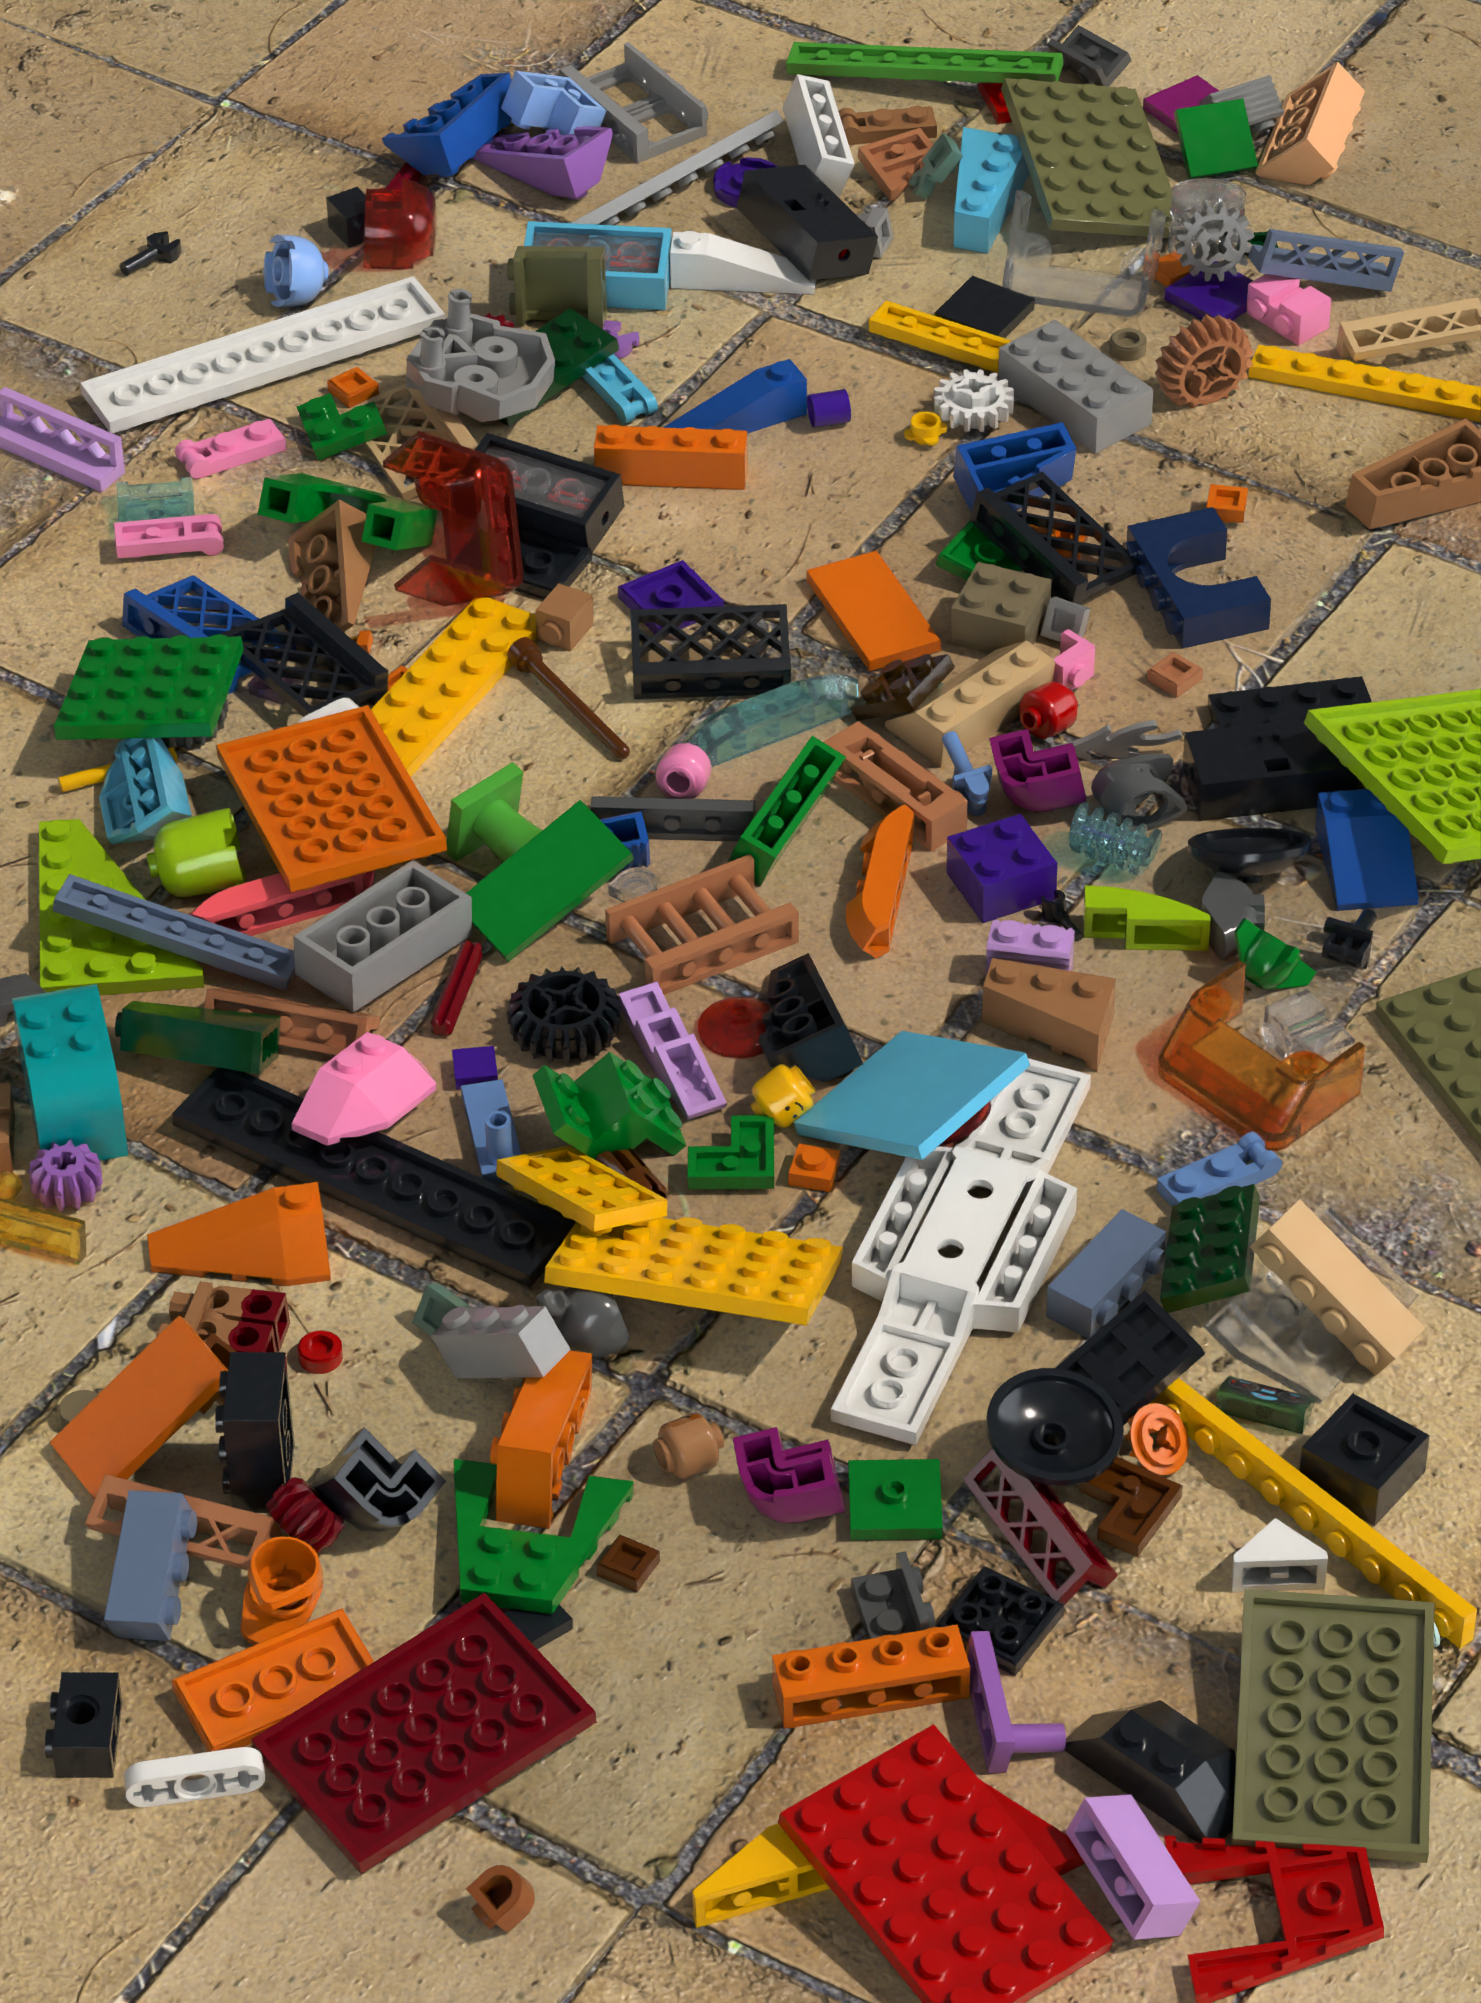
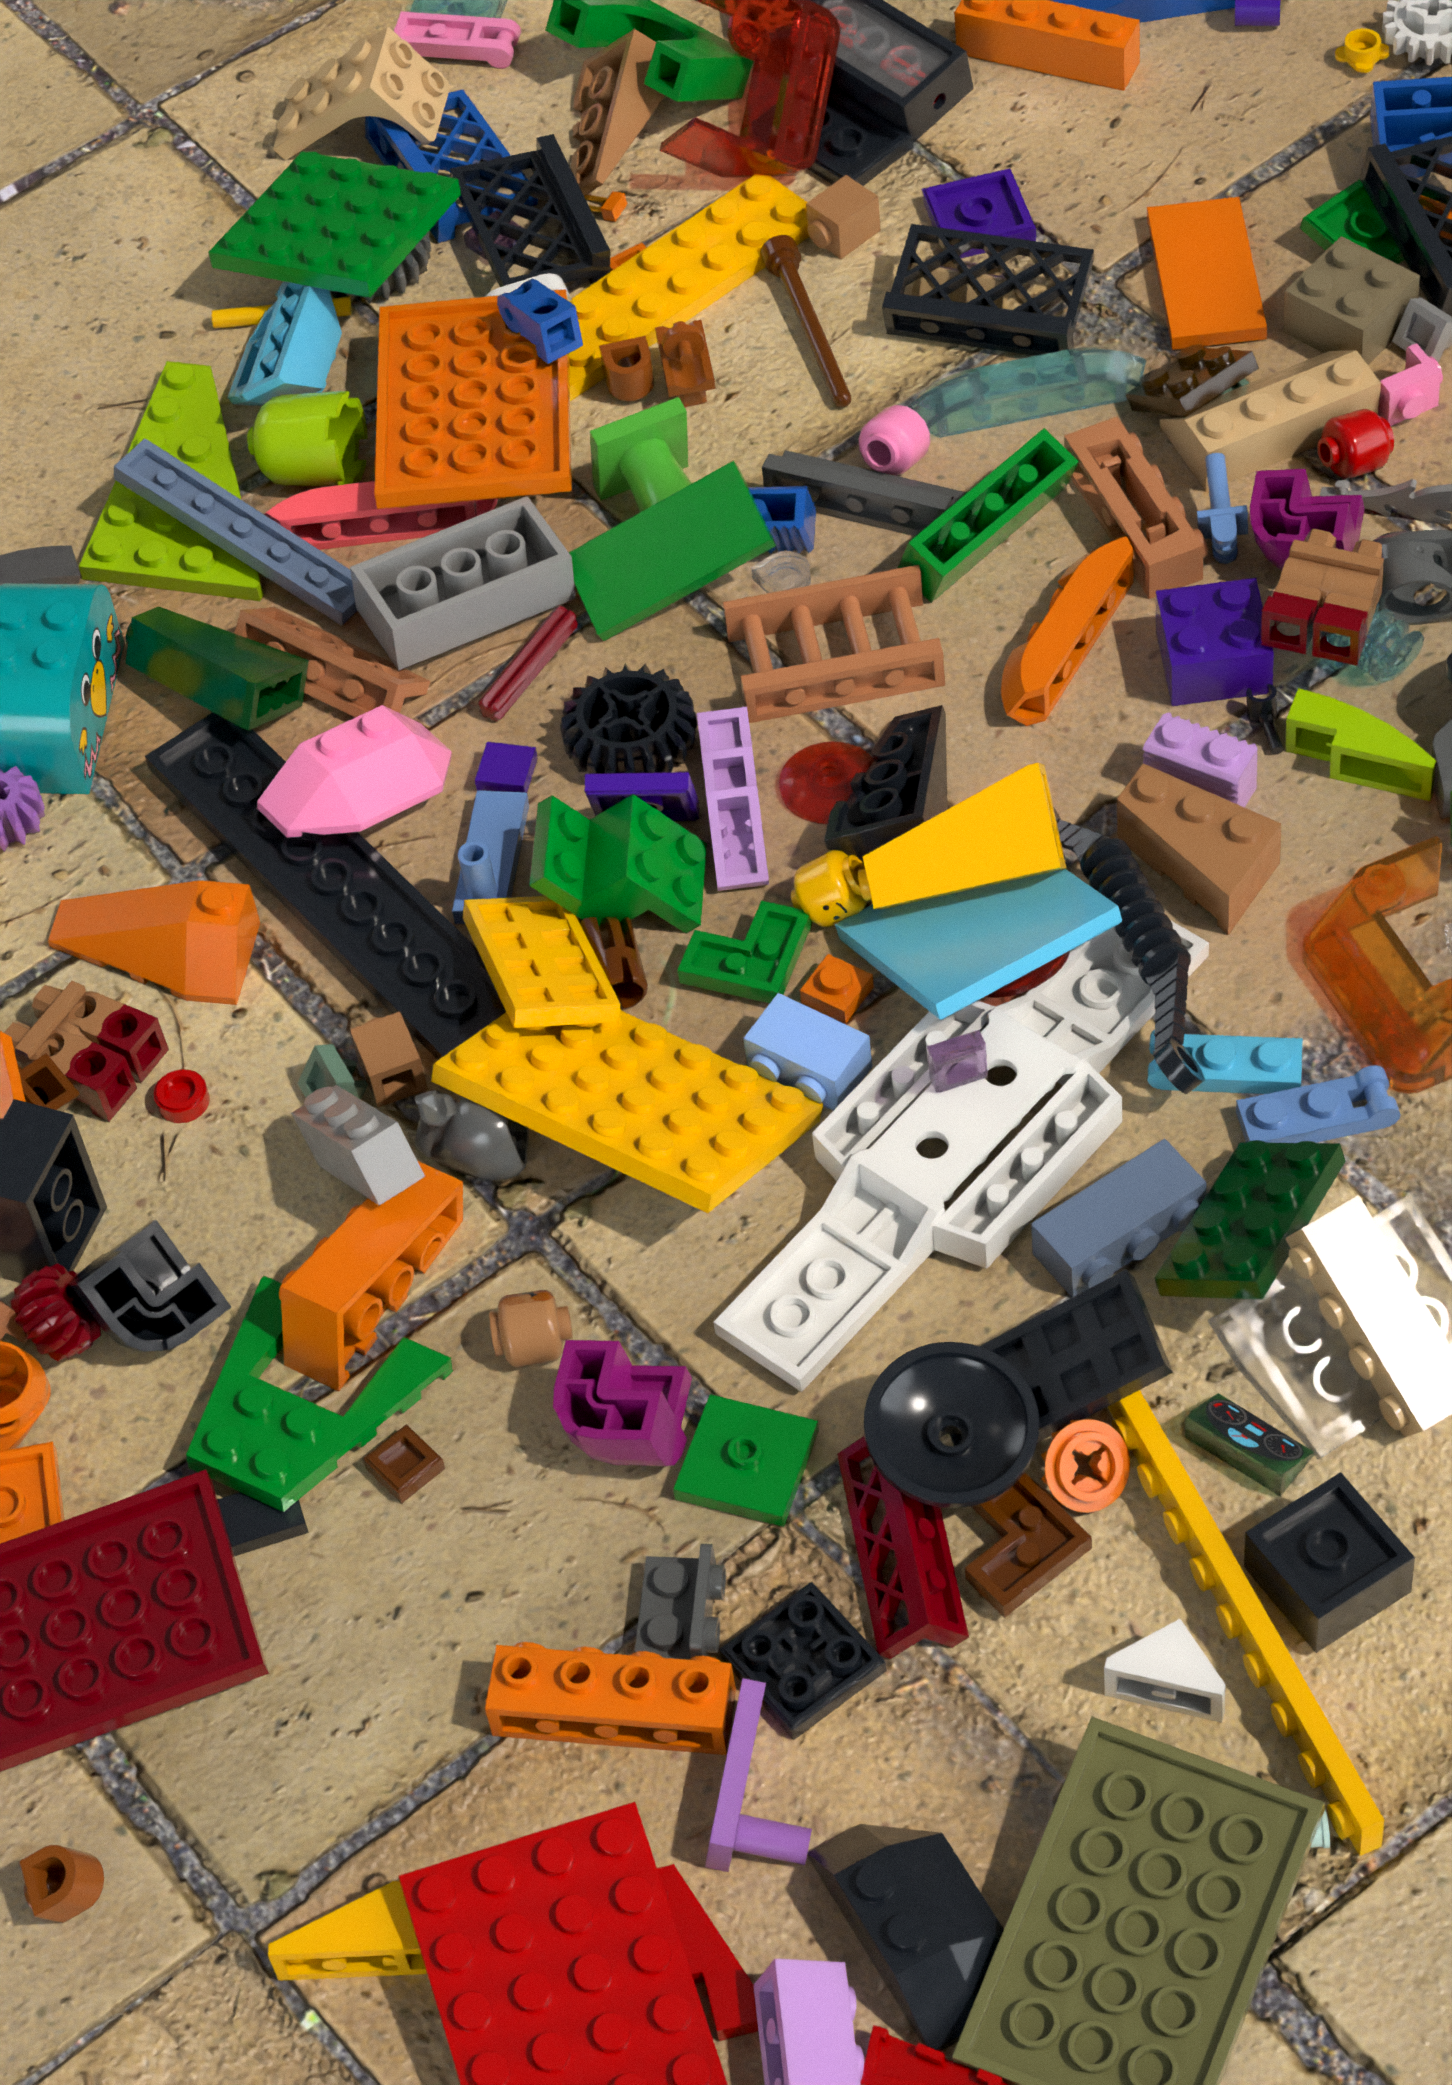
camera: 25 degrees right, 10 degrees up
(120, 576) = (373, 79): none -> tan bracket
(366, 725) = (542, 319): none -> blue leg
(439, 758) = (628, 368): none -> dark orange plate
(483, 1281) = (388, 1059): none -> medium nougat brick
(486, 742) = (686, 361): none -> dark orange hips
(626, 1045) = (667, 792): none -> dark purple tile
(817, 1209) = (808, 1051): none -> light blue brick
(895, 1034) = (978, 843): none -> yellow slope
(950, 1183) = (957, 1061): none -> clear purple tile
(1046, 1073) = (1148, 939): none -> black piece
(1083, 801) = (1325, 594): none -> hips
(1134, 1156) = (1238, 1063): none -> medium azure plate

